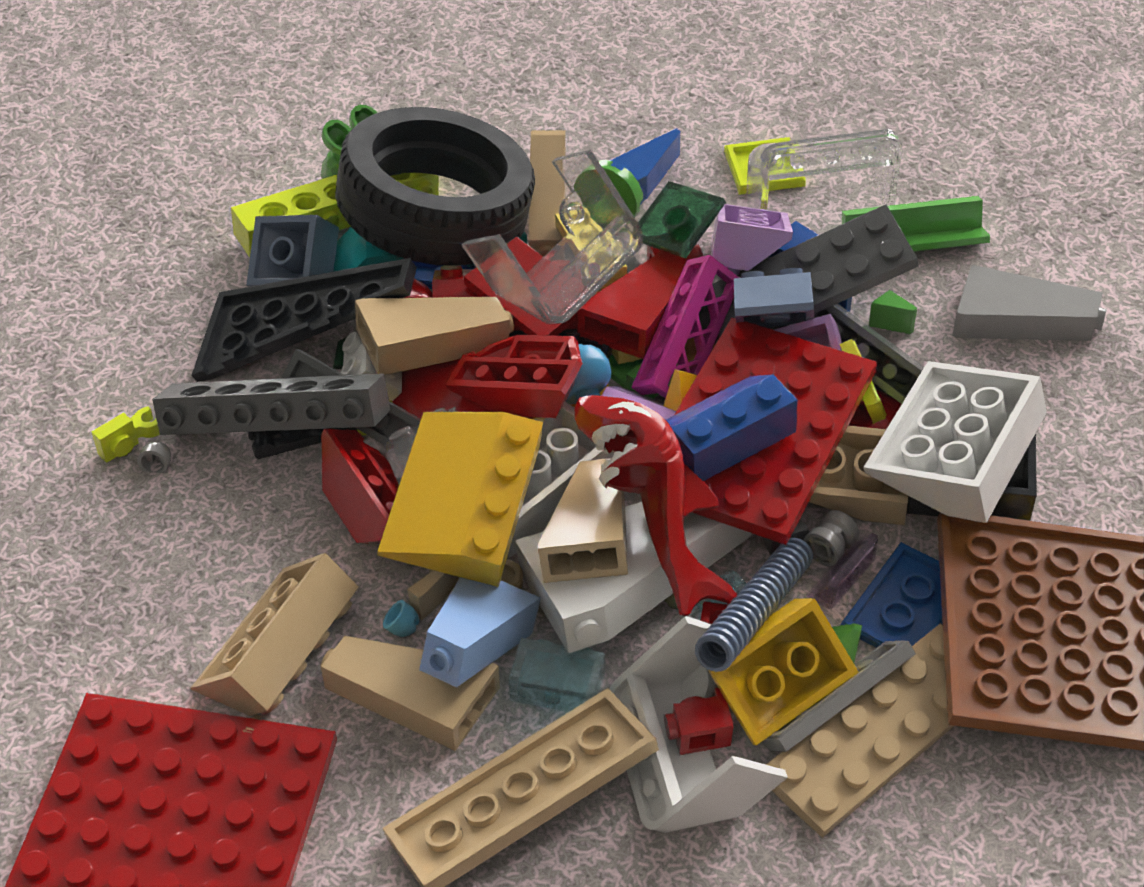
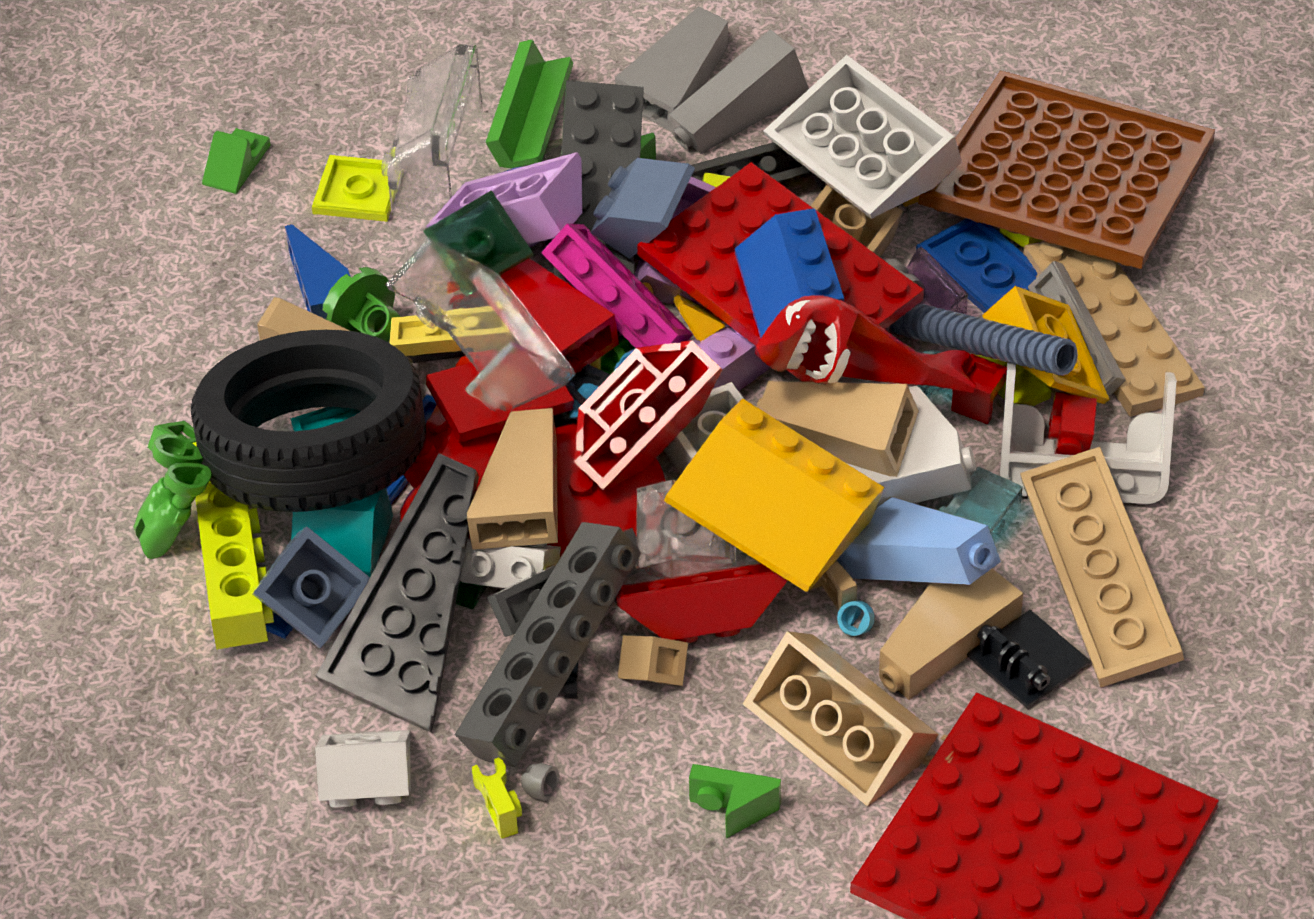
camera: 70 degrees left, 0 degrees up
(140, 345) = (363, 767): none -> white slope
(161, 589) = (743, 794): none -> bright green slope
(299, 490) = (652, 660): none -> tan panel
(400, 765) = (1027, 657): none -> black hinge
(747, 90) = (233, 159): none -> bright green slope
(1013, 349) = (741, 94): none -> light grey slope

